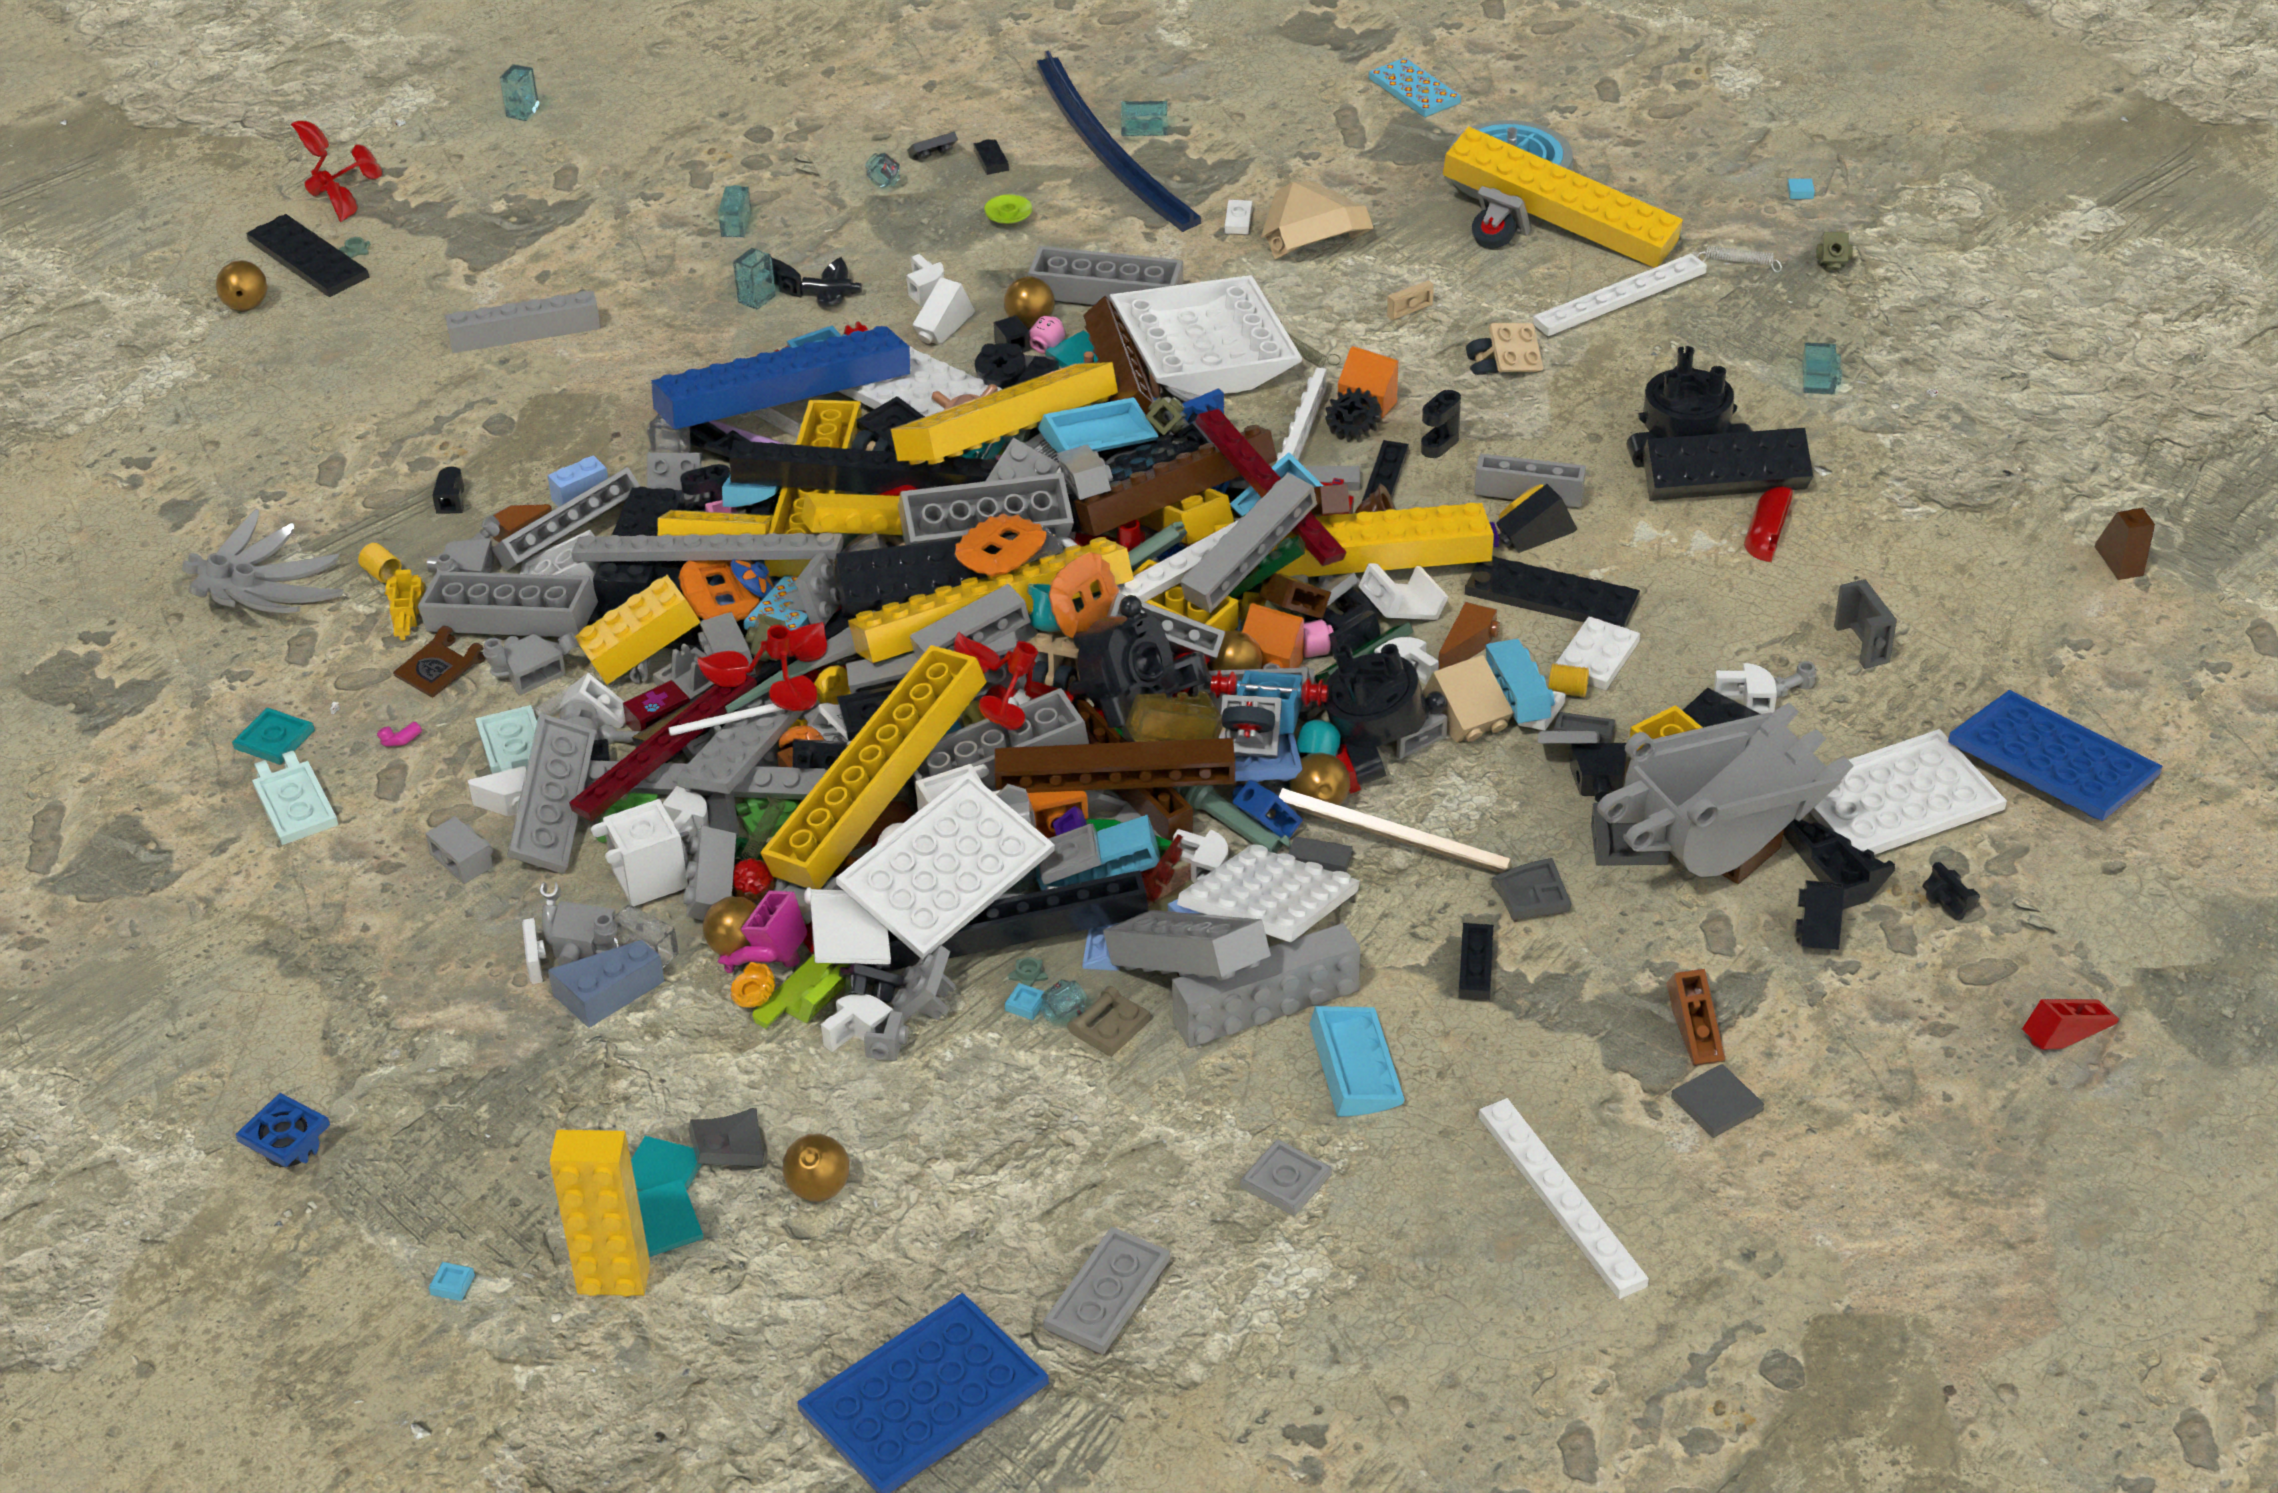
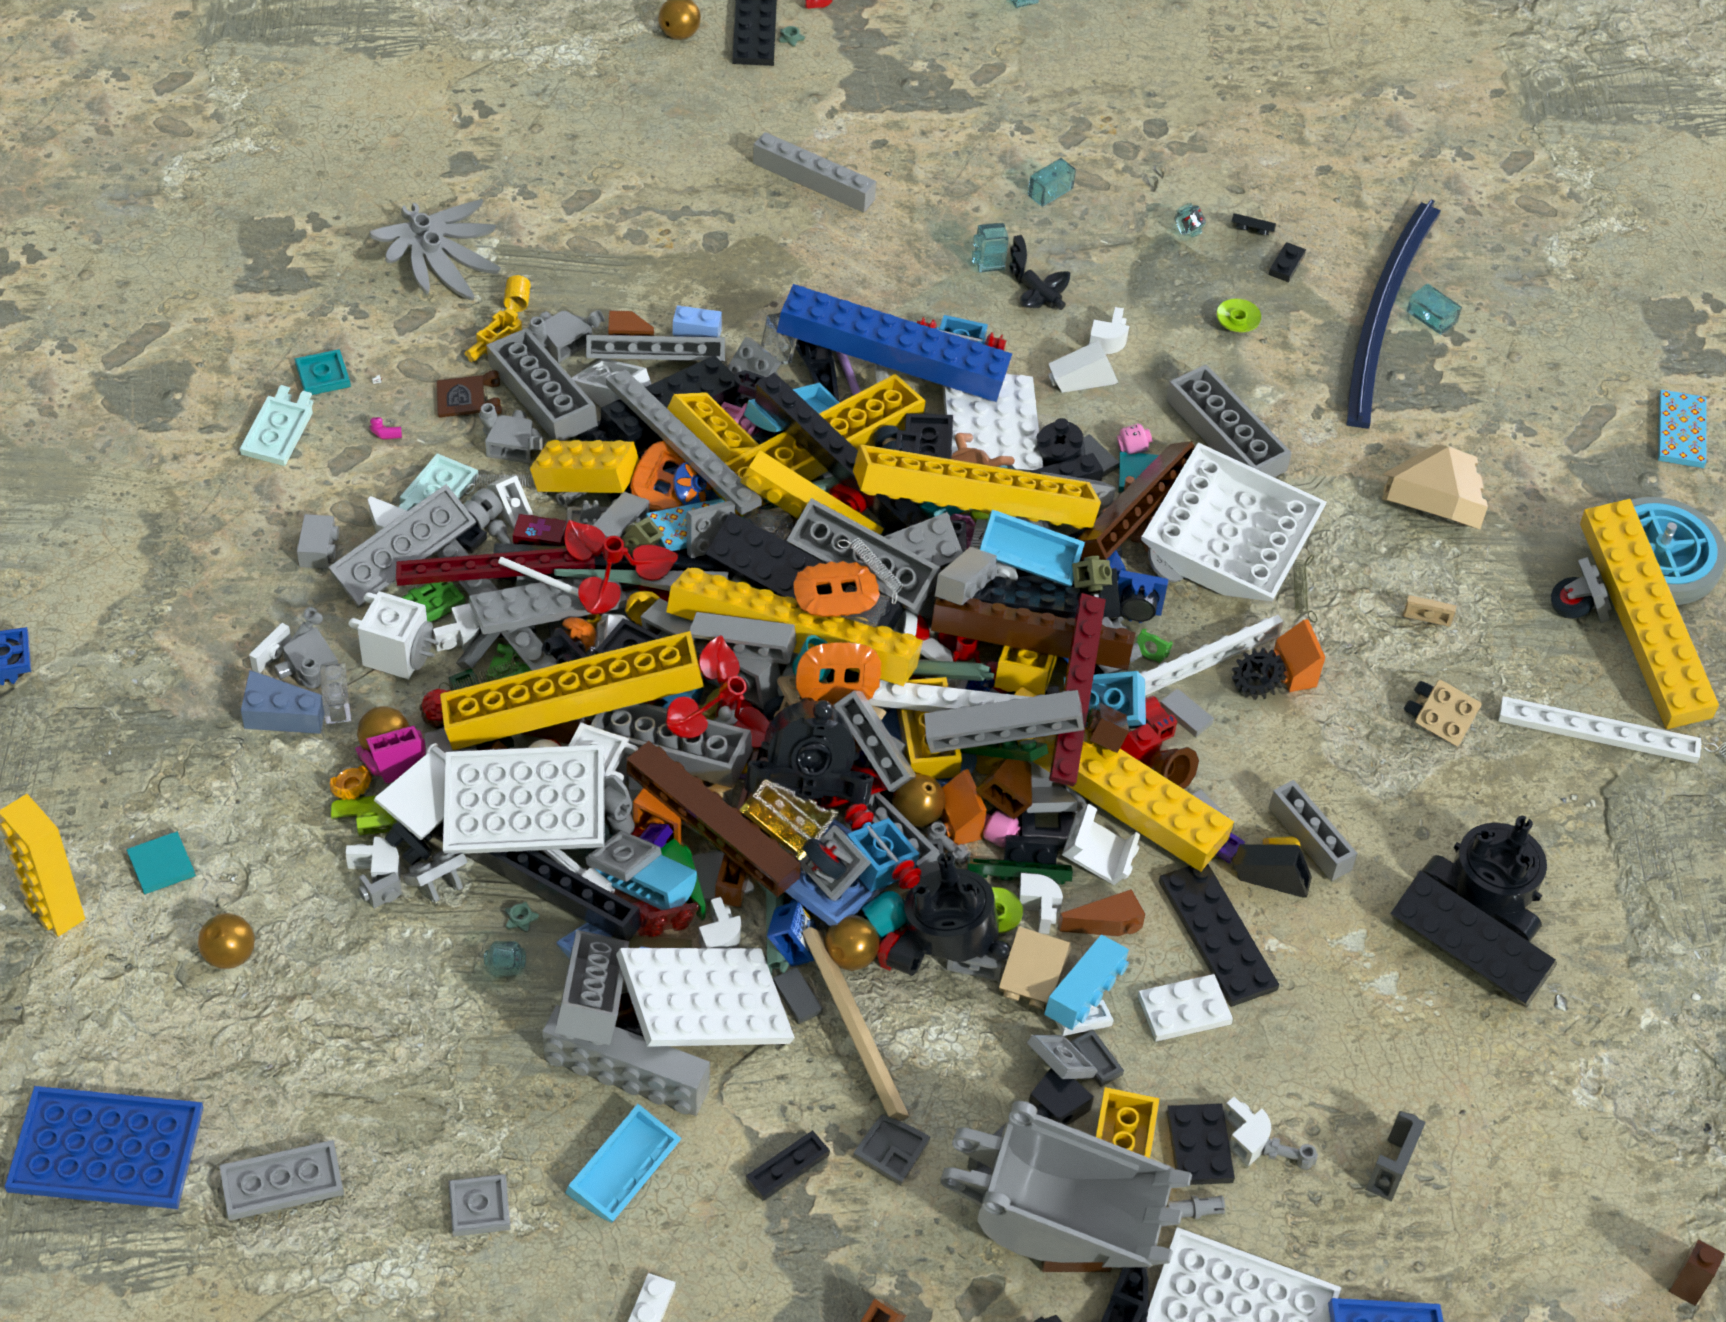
camera: 40 degrees right, 10 degrees up
(448, 491) = (619, 269): black leg -> none
(668, 1217) = (117, 895): teal tile -> none
(709, 870) = (416, 680): light grey brick -> none
(728, 1139) = (213, 876): dark grey plate -> none
(975, 506) = (894, 592): none -> white piece
(1012, 331) = (1109, 423): black brick -> none
(1024, 1001) = (489, 933): medium azure tile -> none
(1029, 300) = (1150, 404): pearl gold piece -> none
(1113, 1030) = (519, 1004): dark tan plate -> none
(1238, 217) = (1399, 443): white plate -> none
(1387, 467) = (1230, 738): black tile -> none
(1444, 415) = (1313, 733): black connector -> none
(1569, 679) = (1129, 1011): yellow piece -> none
(1768, 523) = (1453, 1012): red brick -> none
(1821, 368) = (1670, 917): clear light blue brick -> none

